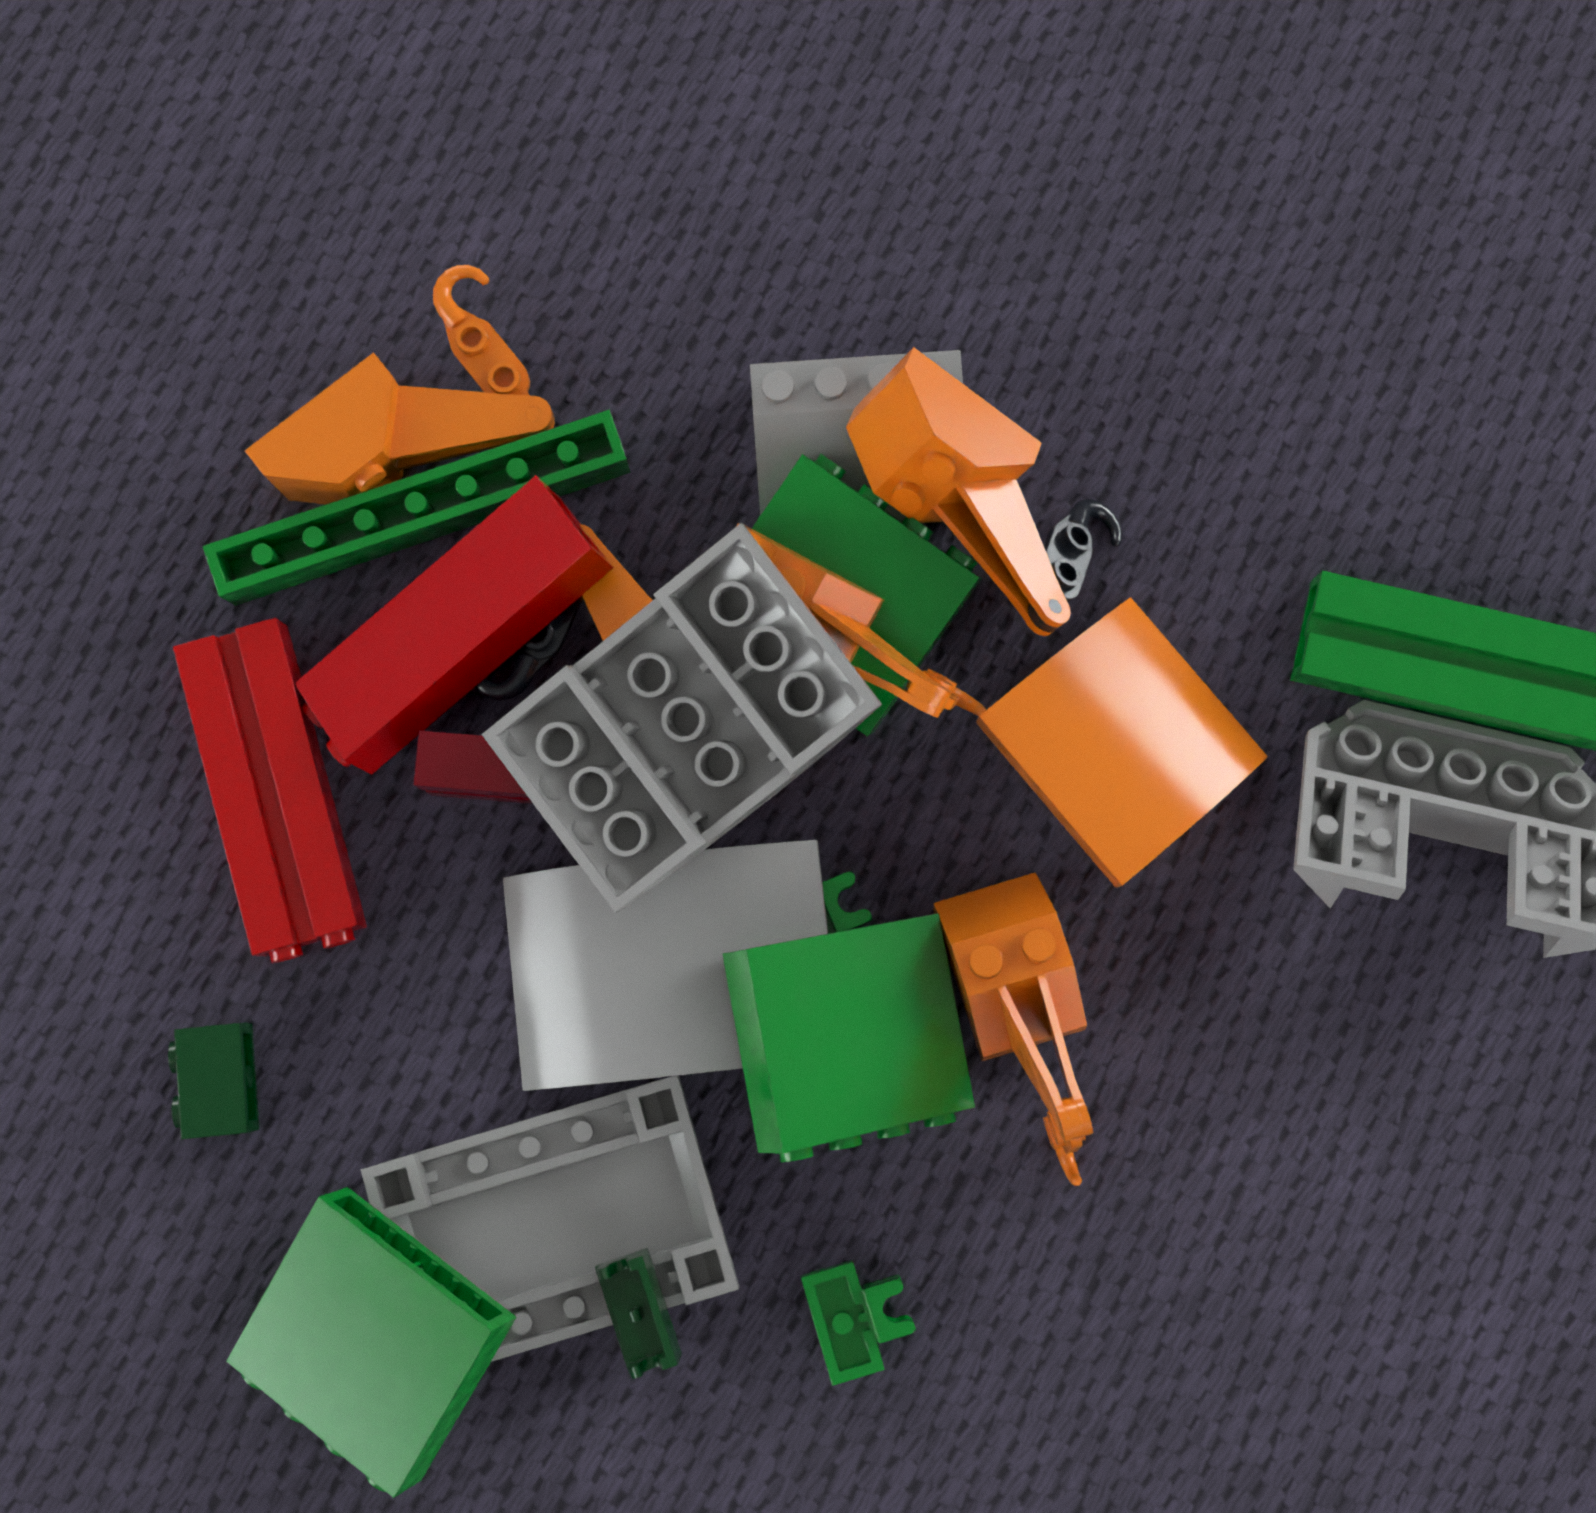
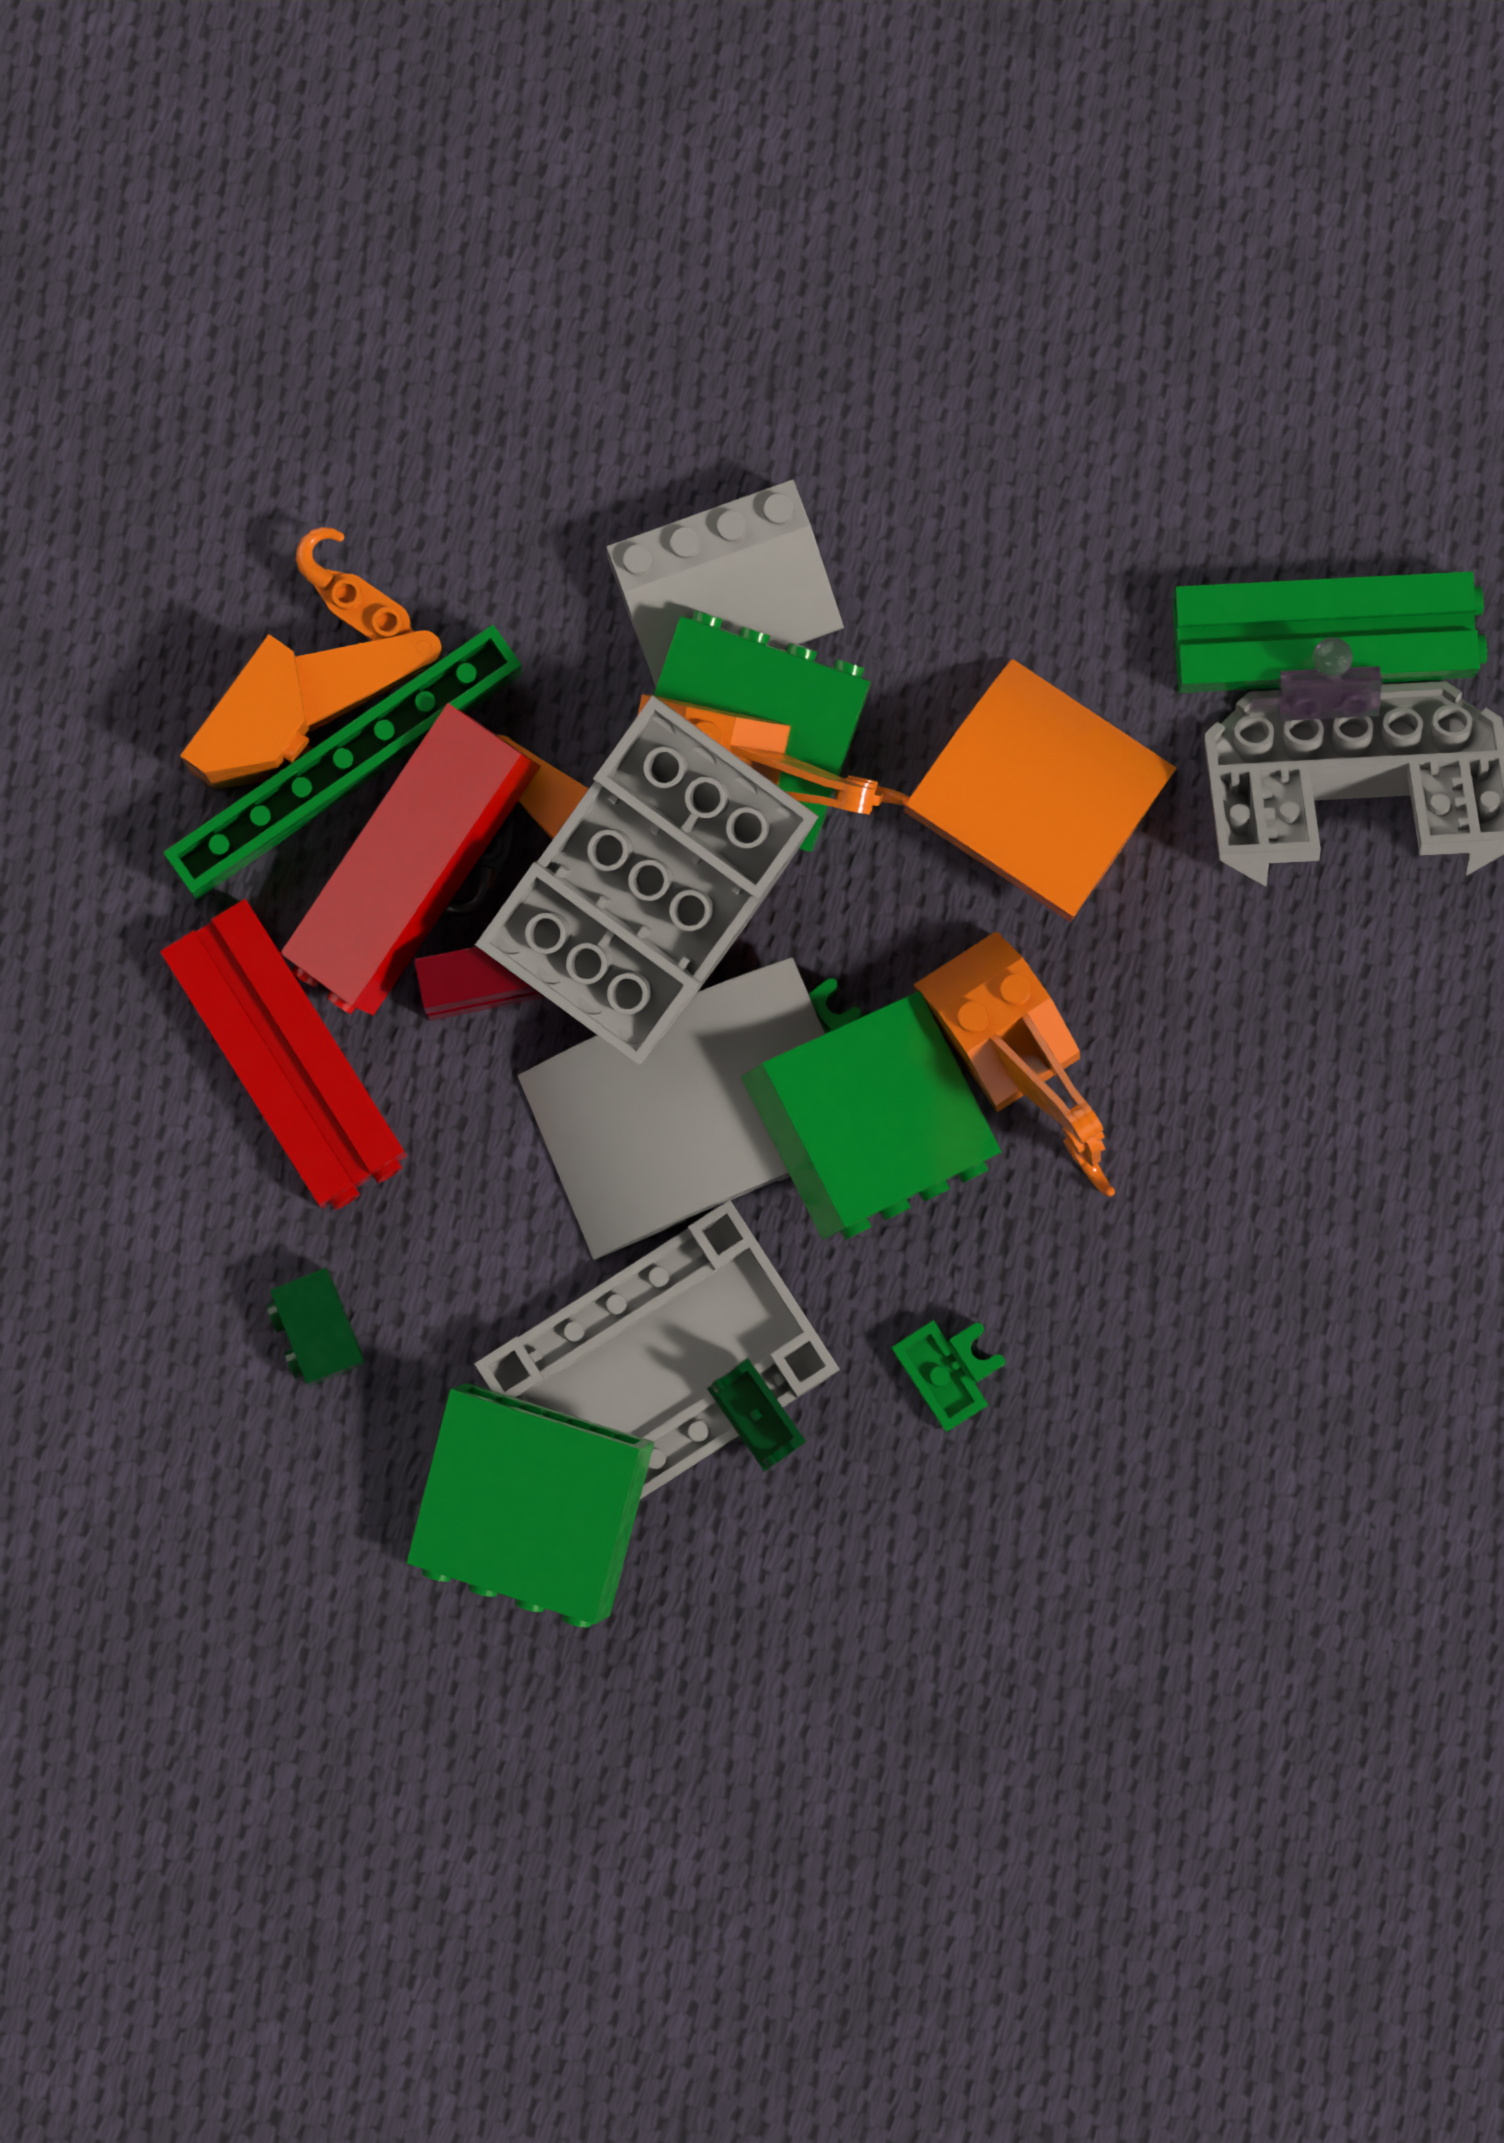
camera: 20 degrees left, 0 degrees up
(957, 461) = (820, 582): orange slope -> none
(1457, 723) = (1331, 688): none -> clear purple plate

